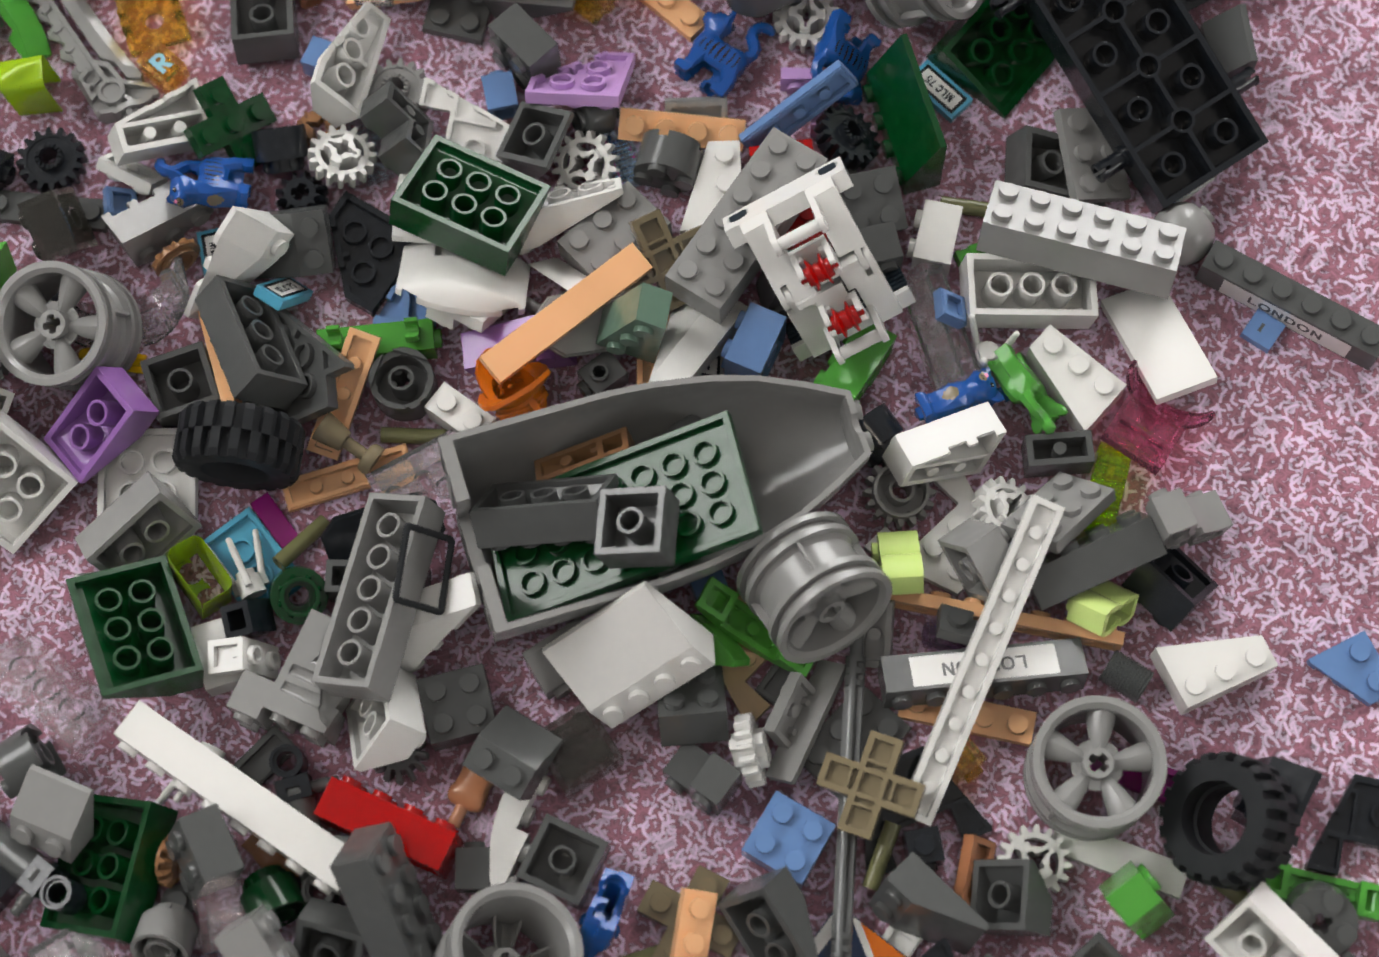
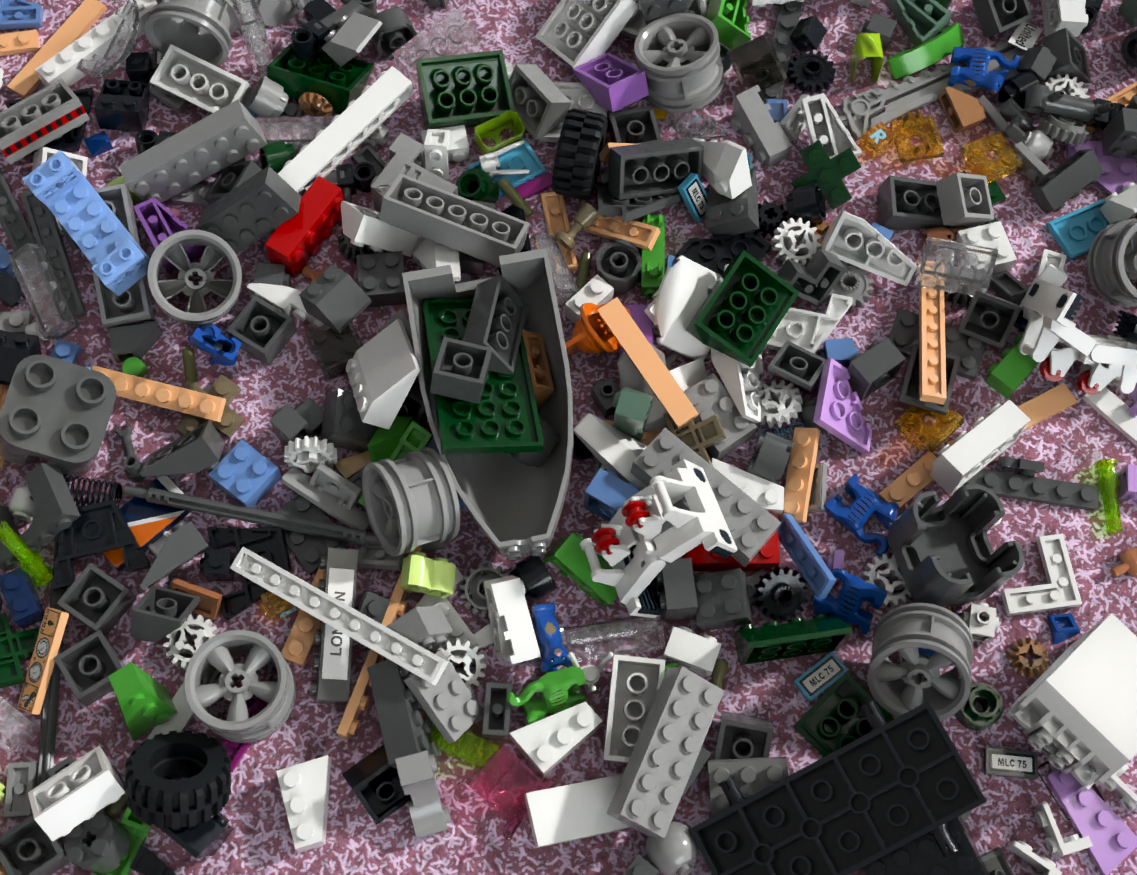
camera: 90 degrees right, 5 degrees down
(186, 248) = (732, 132): medium nougat gear -> none
(204, 852) = (305, 111): dark grey brick -> none
(218, 182) = (778, 157): blue animal -> none
(248, 618) = (462, 155): black brick -> none
(400, 568) = (468, 226): black piece -> none
(871, 785) = (263, 526): dark tan plate -> none
(881, 855) = (219, 535): olive piece -> none
(950, 308) = (623, 642): medium blue tile -> none
(1102, 608) = (363, 721): yellowish green brick -> none
(1126, 676) = (315, 734): dark grey piece -> none

